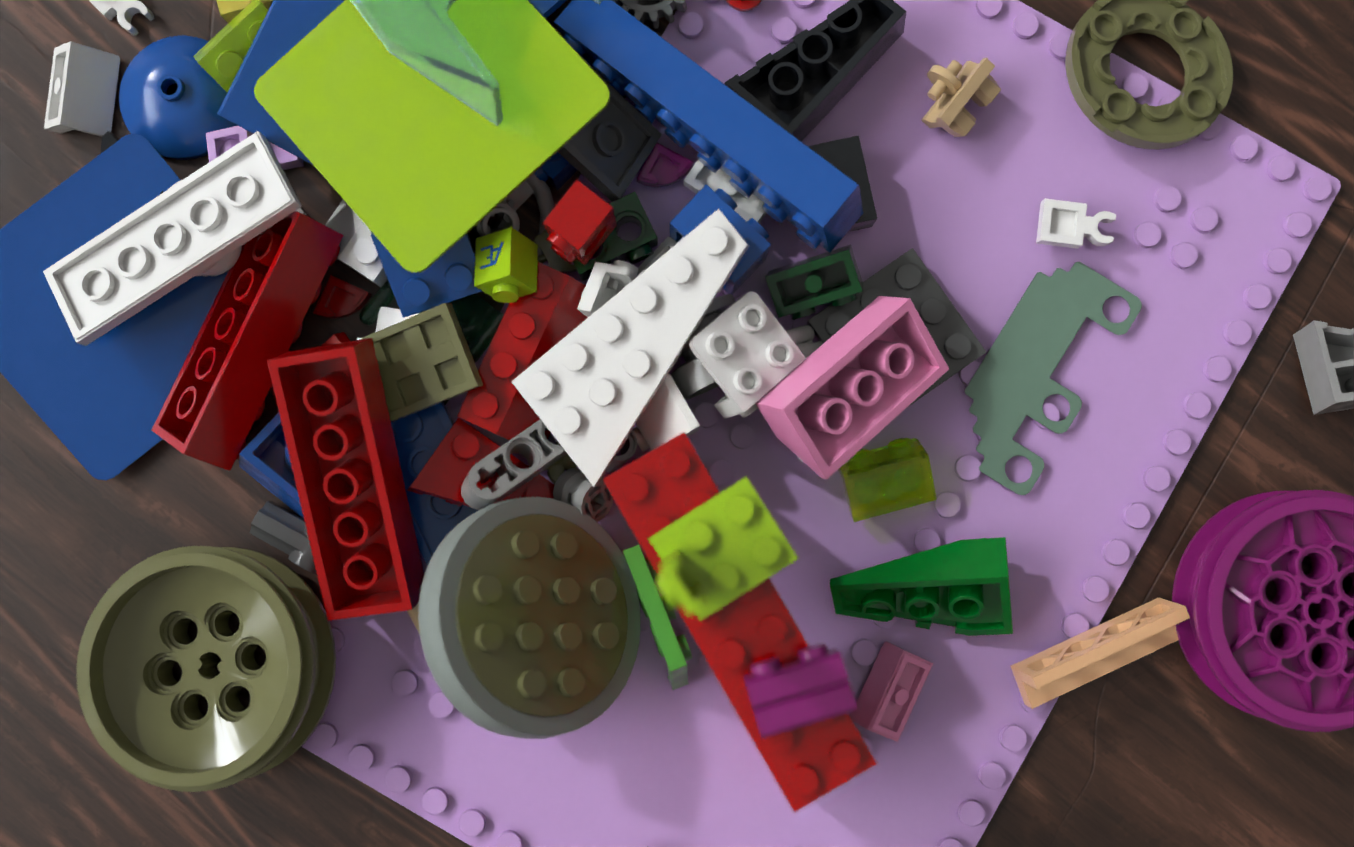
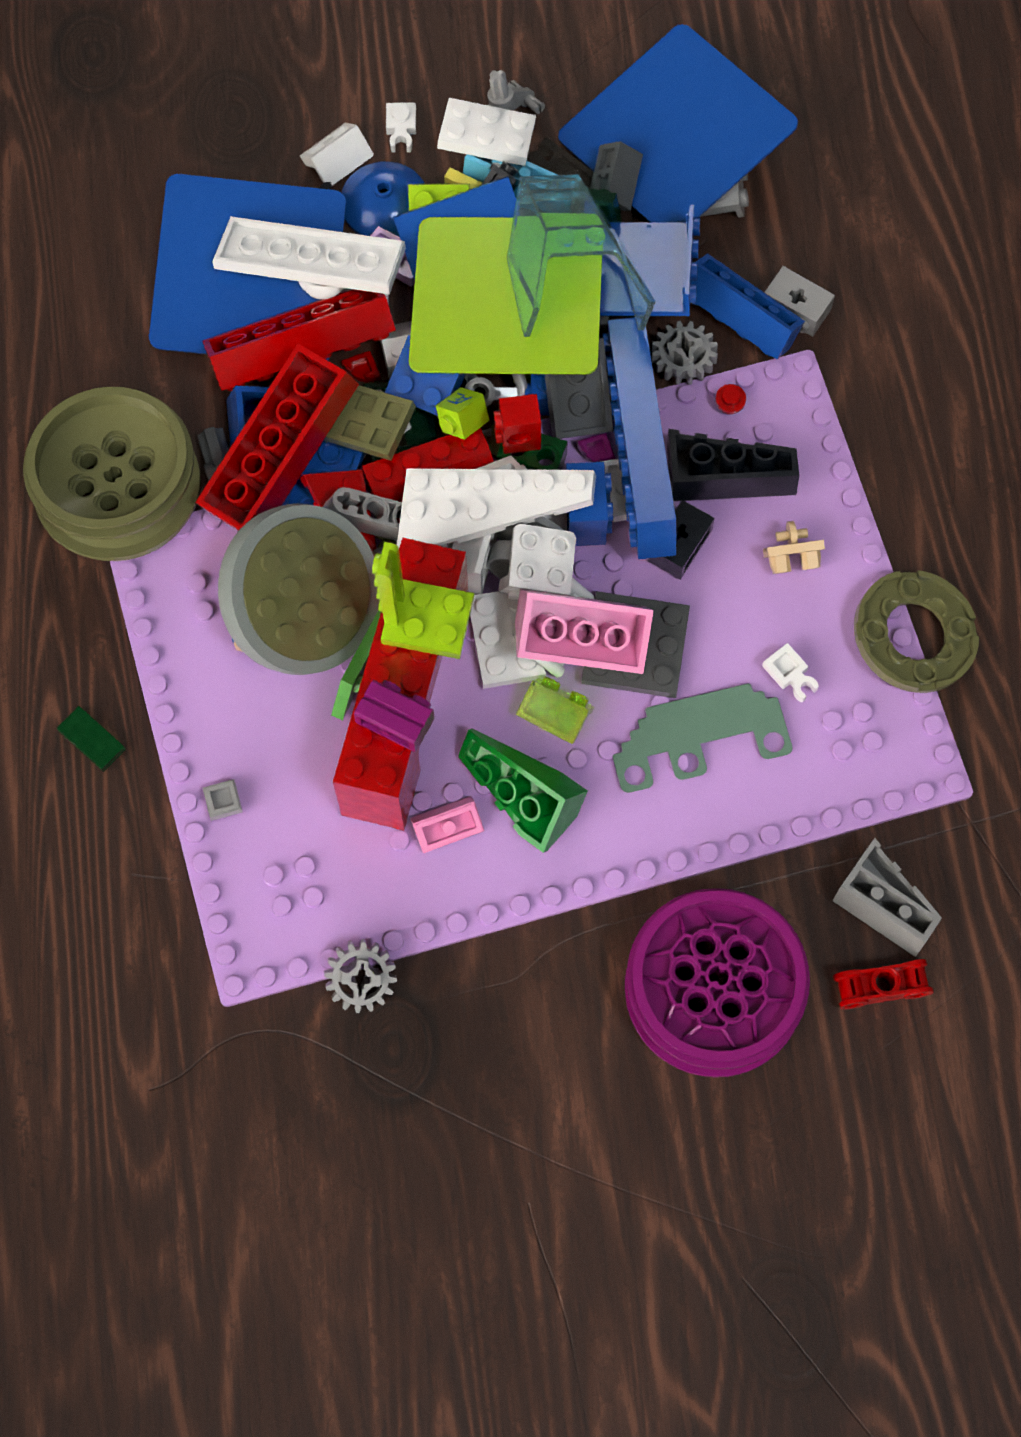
camera: 45 degrees right, 15 degrees down
(752, 450) = (495, 642): none -> white plate
(814, 282) = (617, 569): dark green brick -> none
(1098, 651) = (579, 907): light nougat fence -> none

